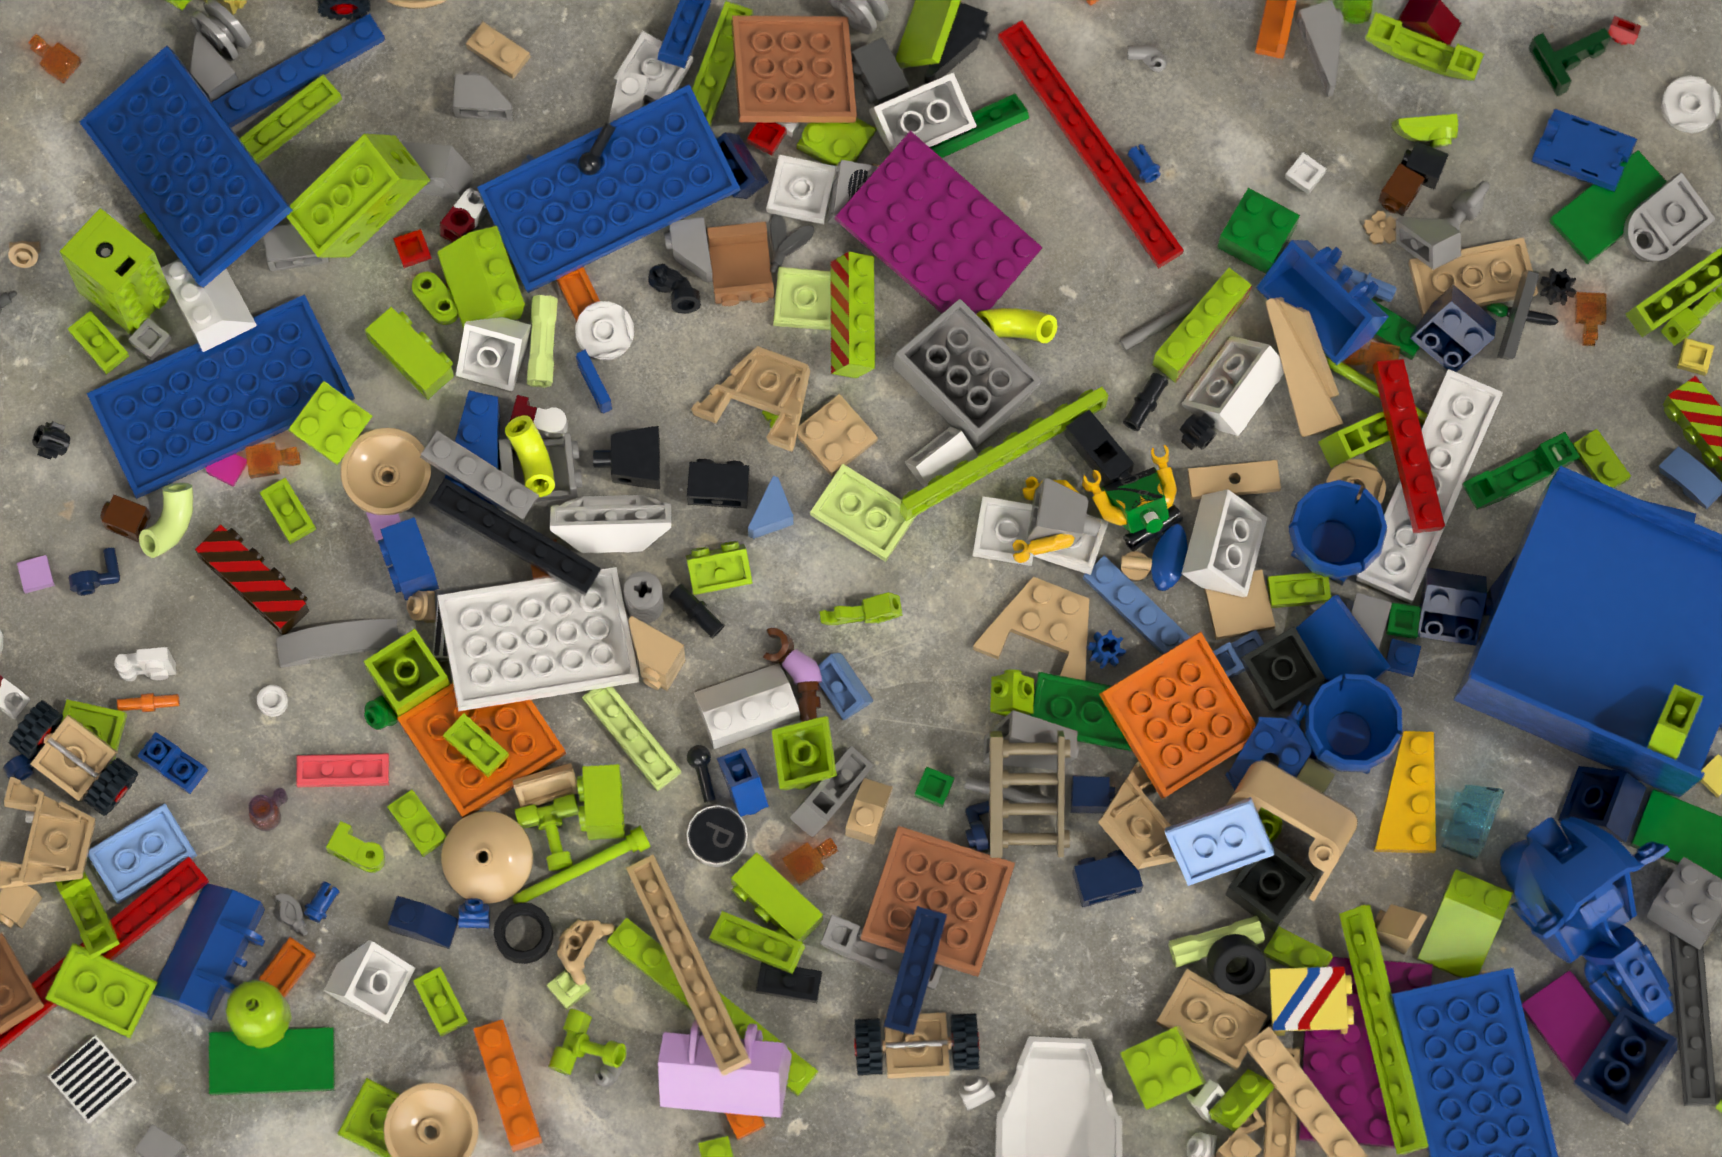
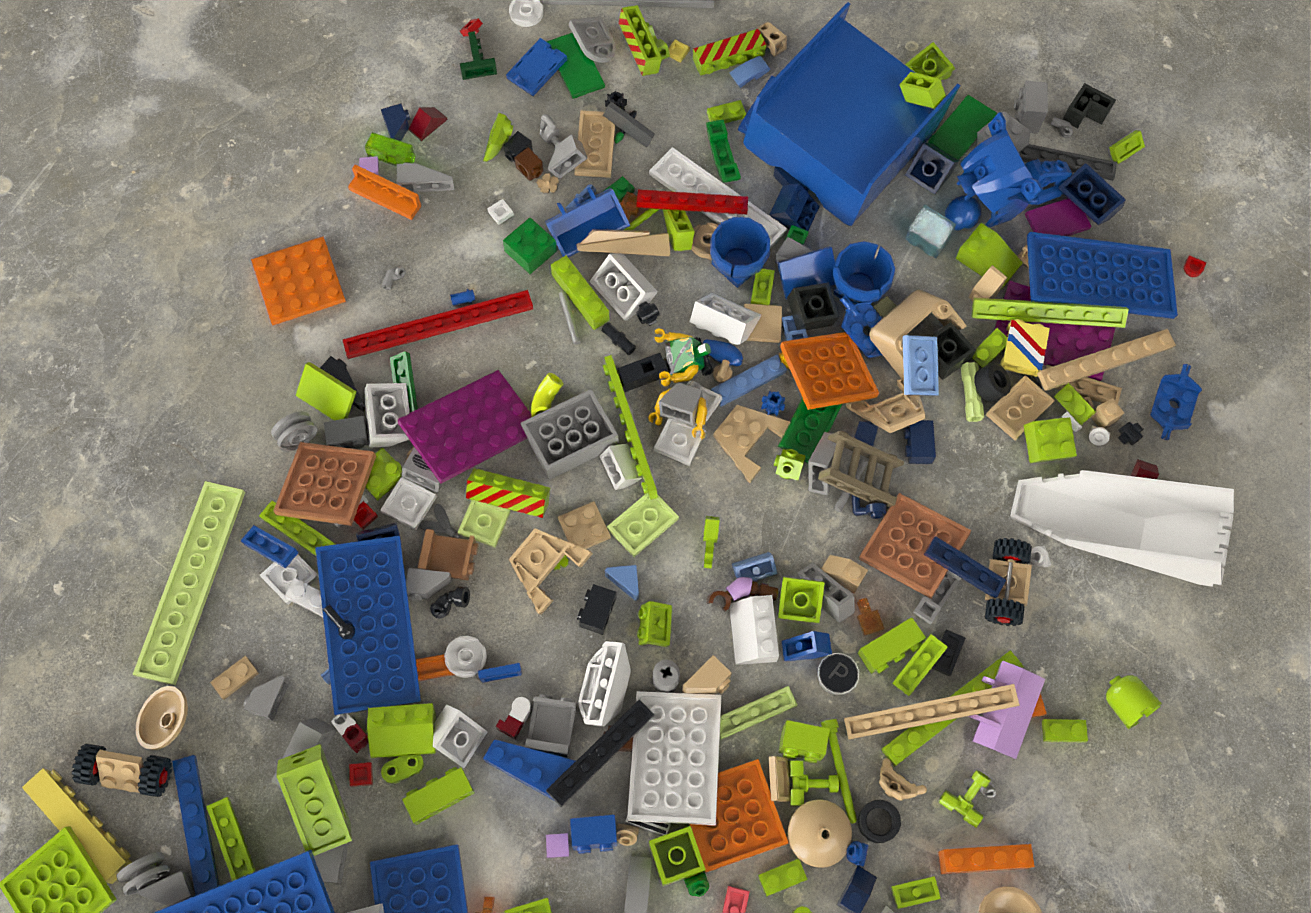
camera: 75 degrees left, 5 degrees down
(330, 423) = (475, 866): lime brick -> none
(384, 453) = (512, 822): tan dish -> none
(476, 745) = (742, 819): lime plate -> none
(479, 476) = (550, 766): light grey plate -> none
(532, 455) = (543, 727): neon yellow cylinder -> none
(542, 341) = (474, 705): yellowish green axle -> none
(566, 990) = (922, 802): yellowish green tile -> none
(633, 458) = (562, 660): black torso -> none
(696, 611) = (681, 646): black pin -> none
(699, 758) = (783, 671): black bar -> none
(934, 787) = (837, 528): green plate -> none
(1252, 478) = (684, 295): tan tile -> none
(1403, 657) = (818, 242): blue plate -> none
(1409, 811) = (914, 267): yellow wing -> none
(1423, 51) = (446, 129): lime slope -> none
(1454, 329) = (627, 159): dark blue slope -> none
(1590, 311) = (635, 91): clear orange plate -> none

